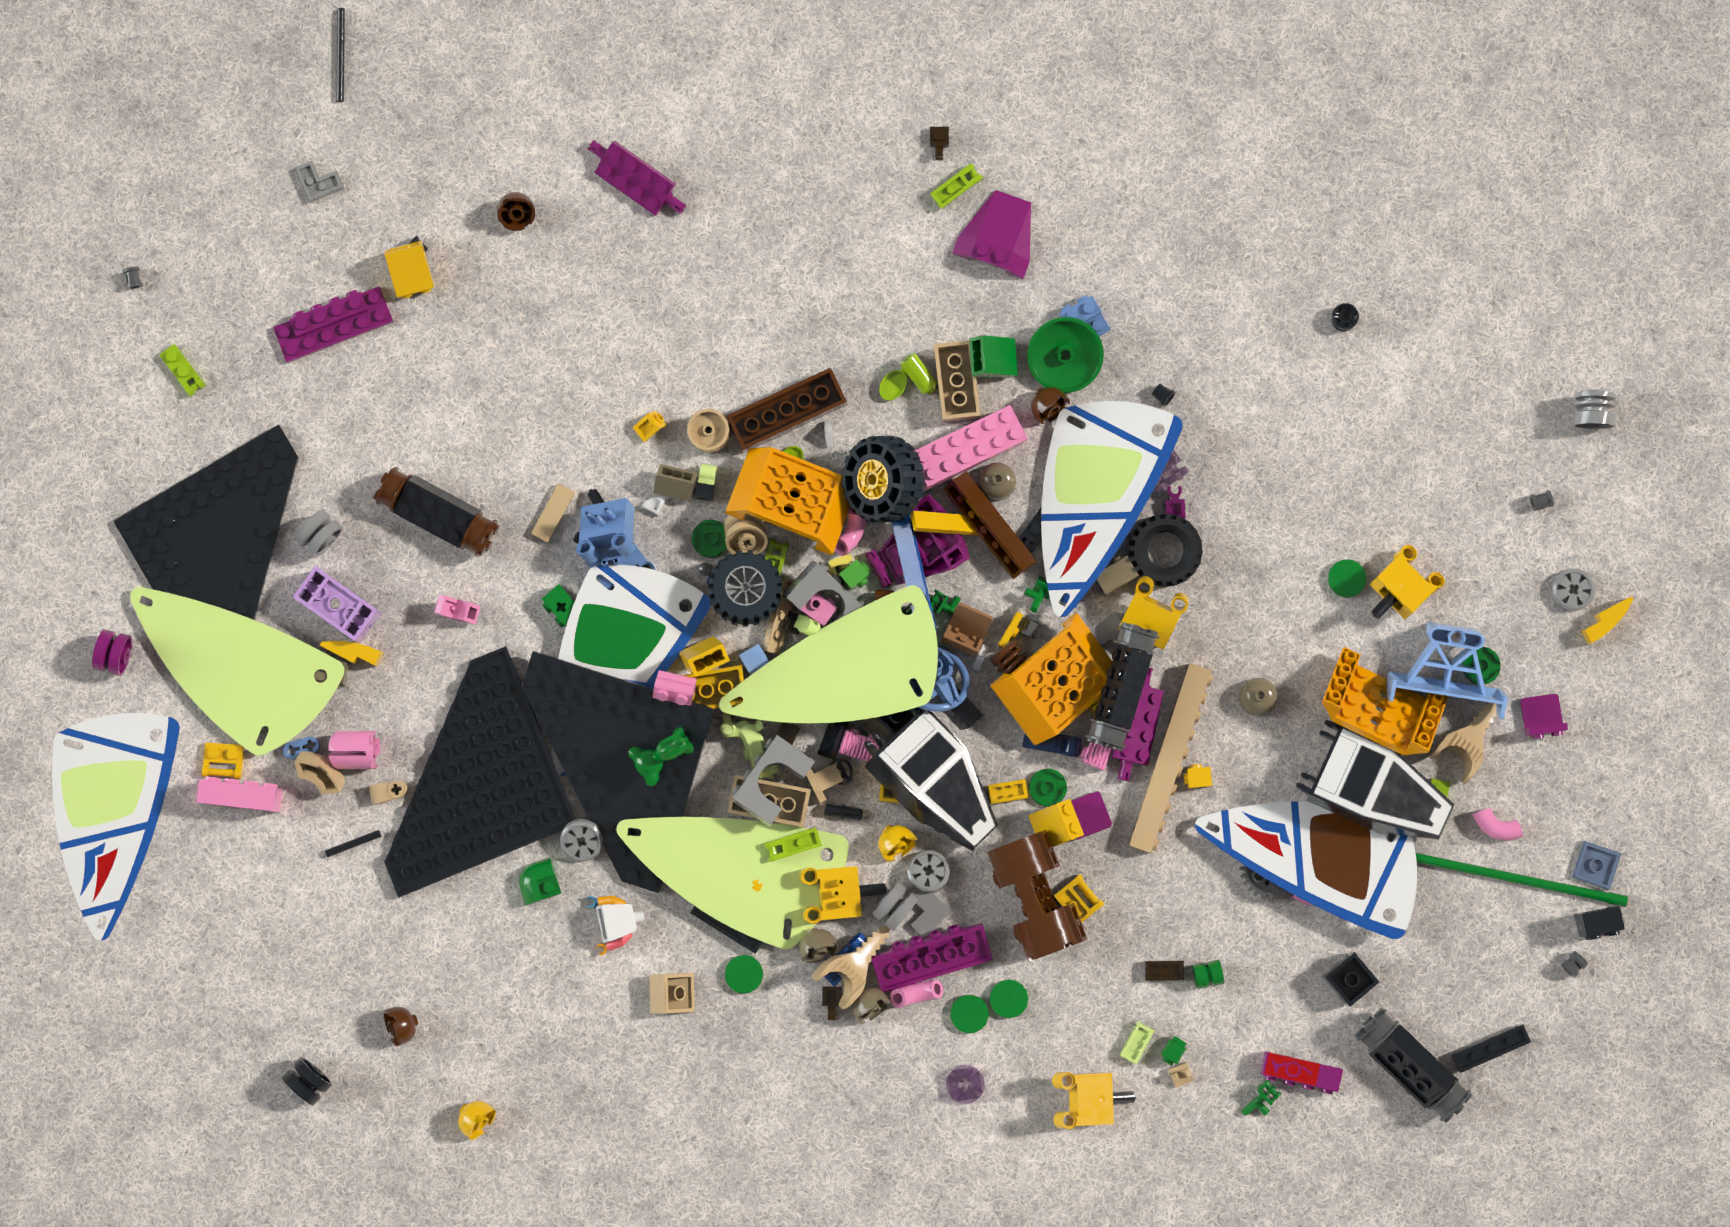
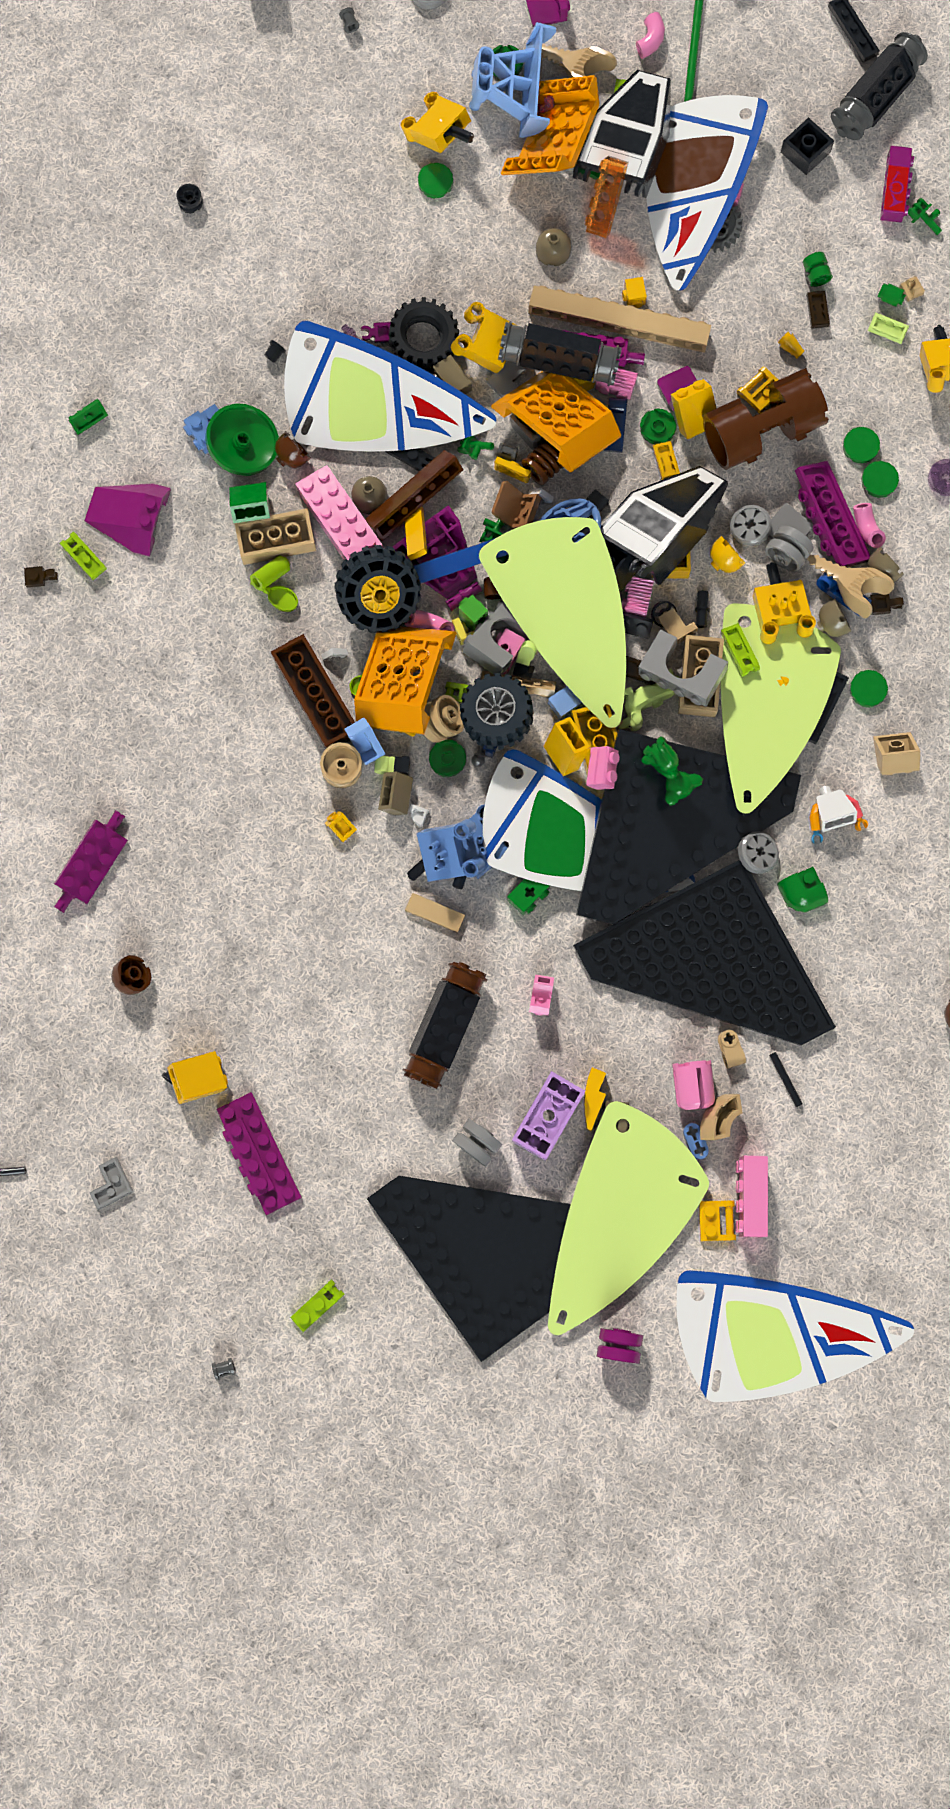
camera: 95 degrees left, 5 degrees down
(729, 456) = (365, 741): none -> light blue panel
(1106, 198) = (87, 416): none -> green plate
(1125, 937) = (791, 345): none -> yellow cone
(1300, 754) = (617, 169): none -> clear orange brick
(1414, 700) = (548, 105): none -> clear pink arm

